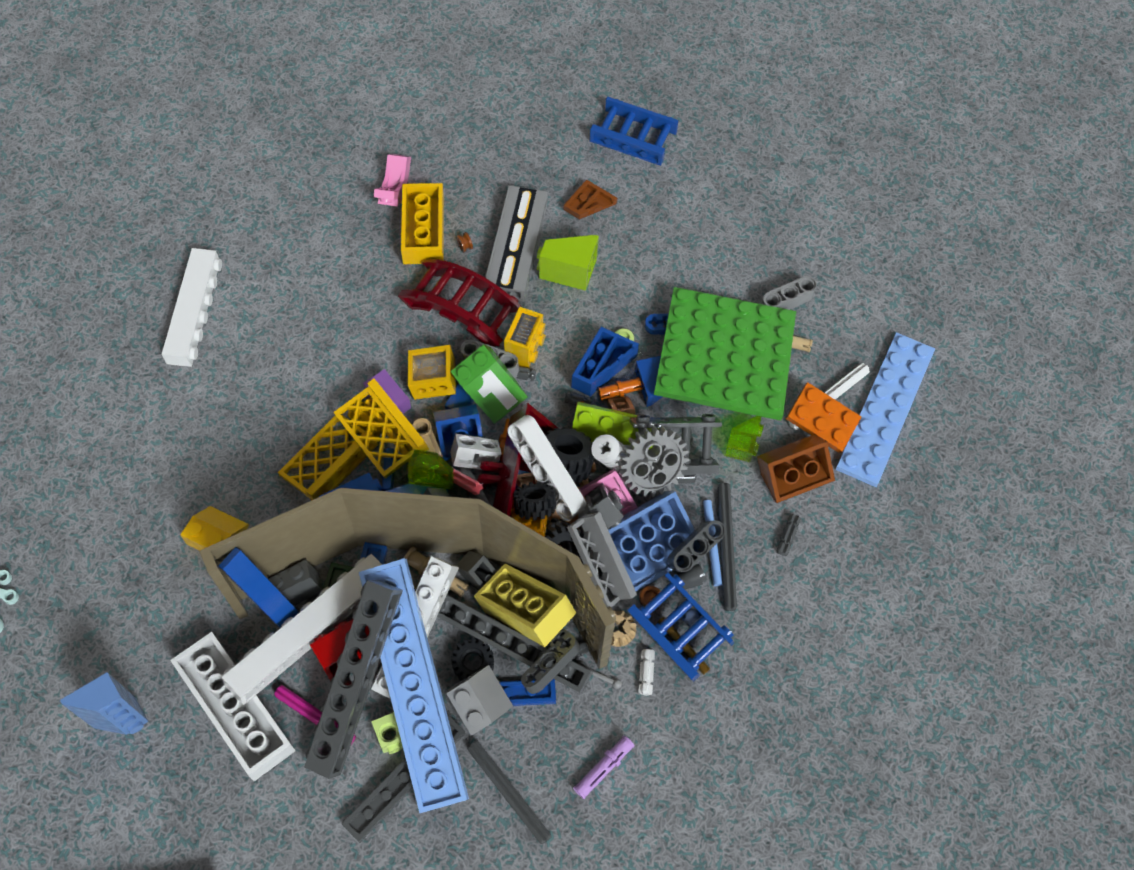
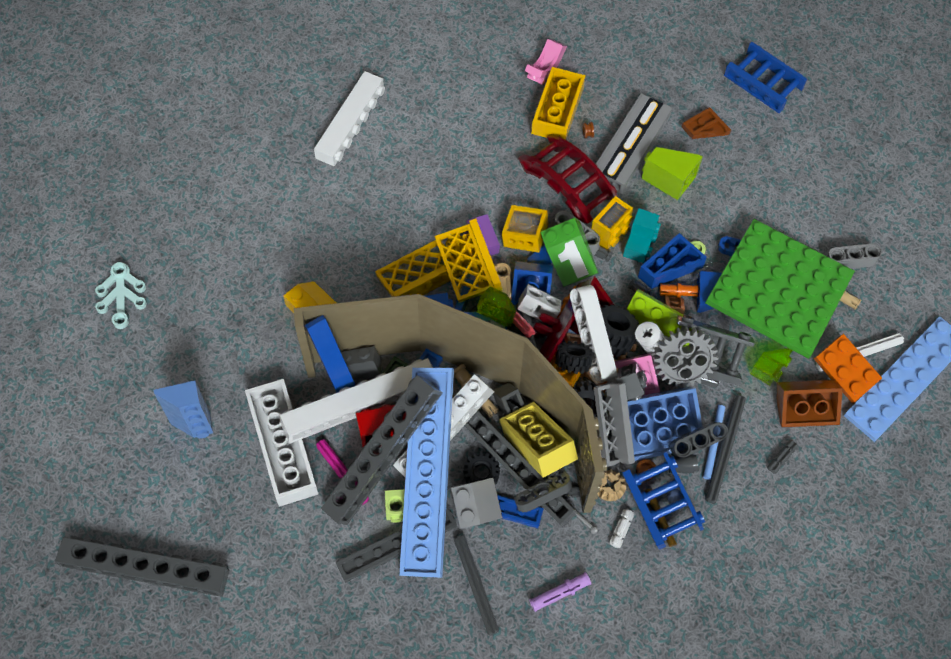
camera: 20 degrees right, 0 degrees up
(561, 341) = (643, 233): none -> teal brick

